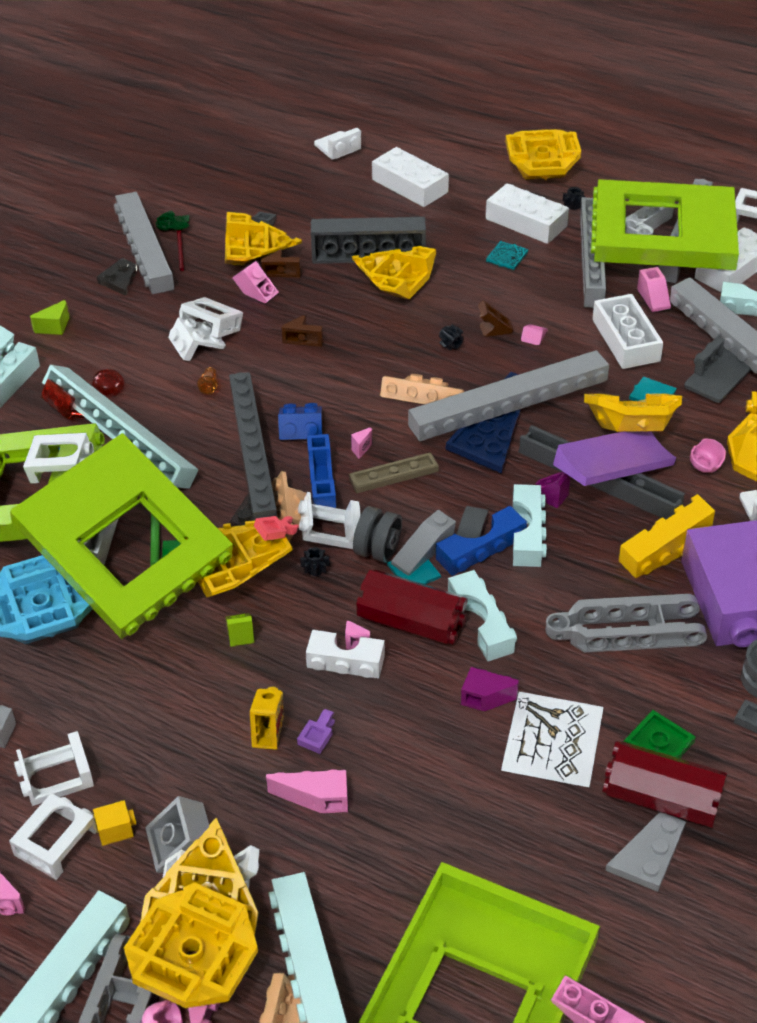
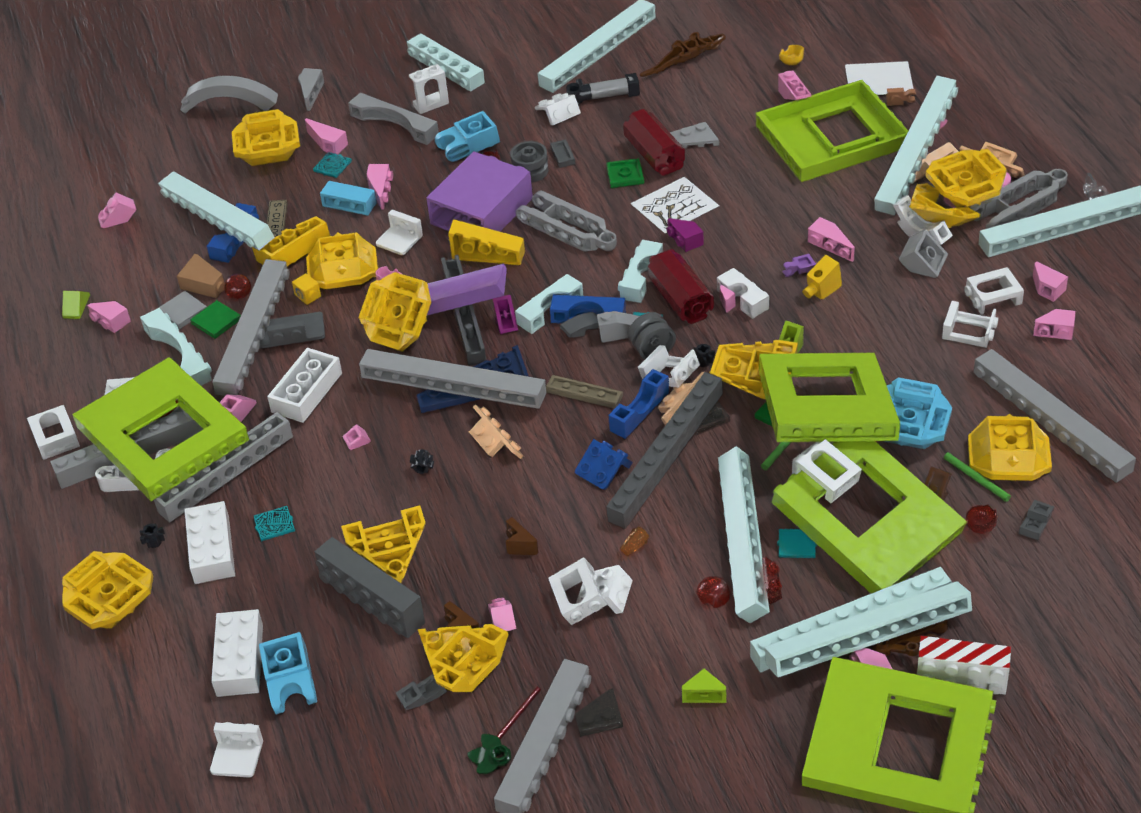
camera: 135 degrees left, 0 degrees up
(114, 822) = (954, 279): yellow brick -> none
(273, 528) = (721, 355): coral plate -> none
(360, 182) = (287, 670): none -> medium azure brick
(361, 442) = (582, 418): bright pink slope -> none
(493, 322) = (374, 458): reddish brown slope -> none
(650, 386) = (349, 346): teal piece -> none

